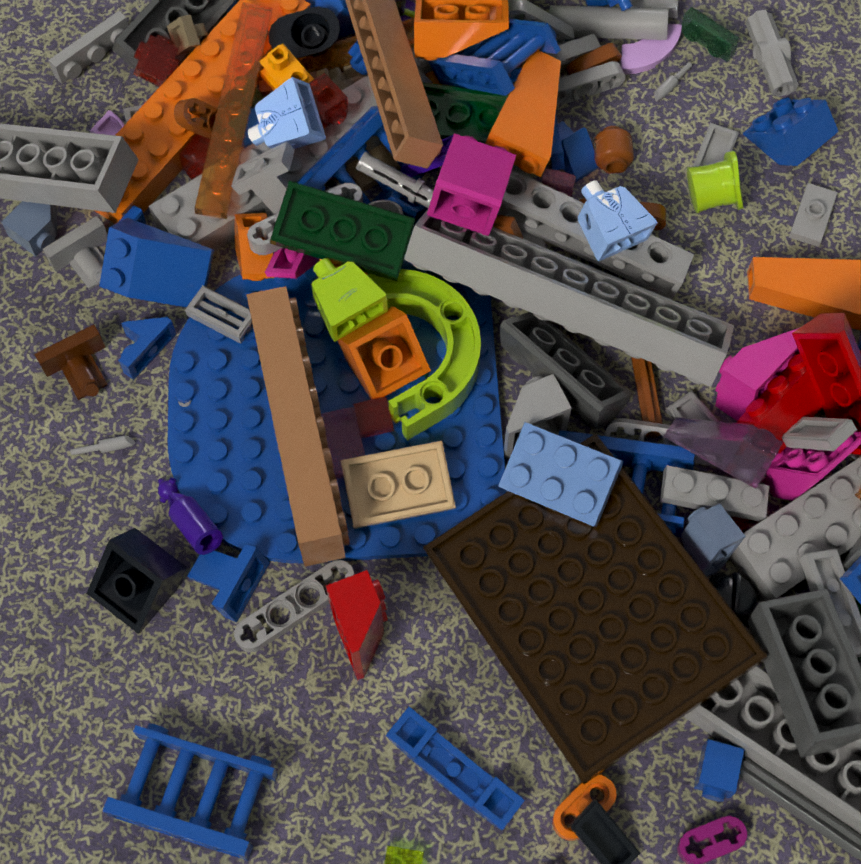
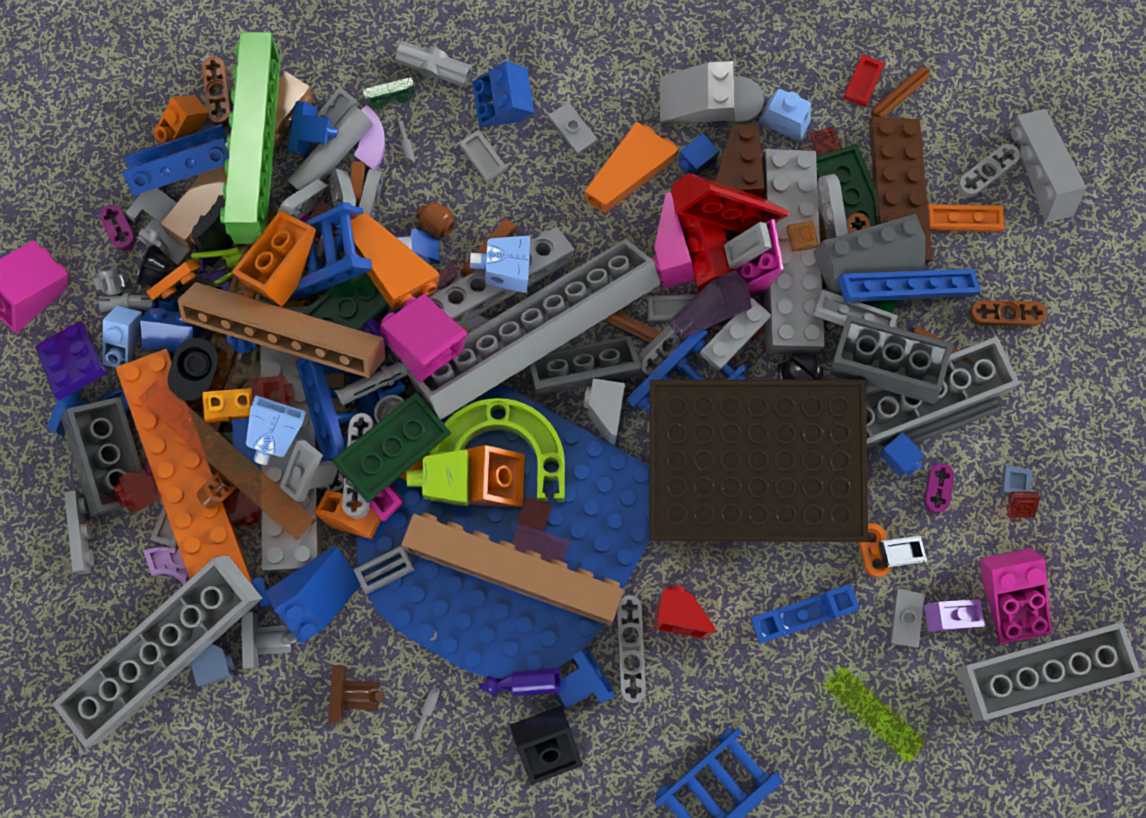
camera: 60 degrees left, 10 degrees up
(149, 339) = (365, 630): blue slope -> none
(186, 34) = (130, 456): dark tan tile -> none
(398, 484) = (596, 529): tan tile -> none
(560, 474) = (667, 421): medium blue plate -> none
(711, 538) = (763, 357): sand blue slope -> none
(715, 184) = (513, 174): lime piece -> none

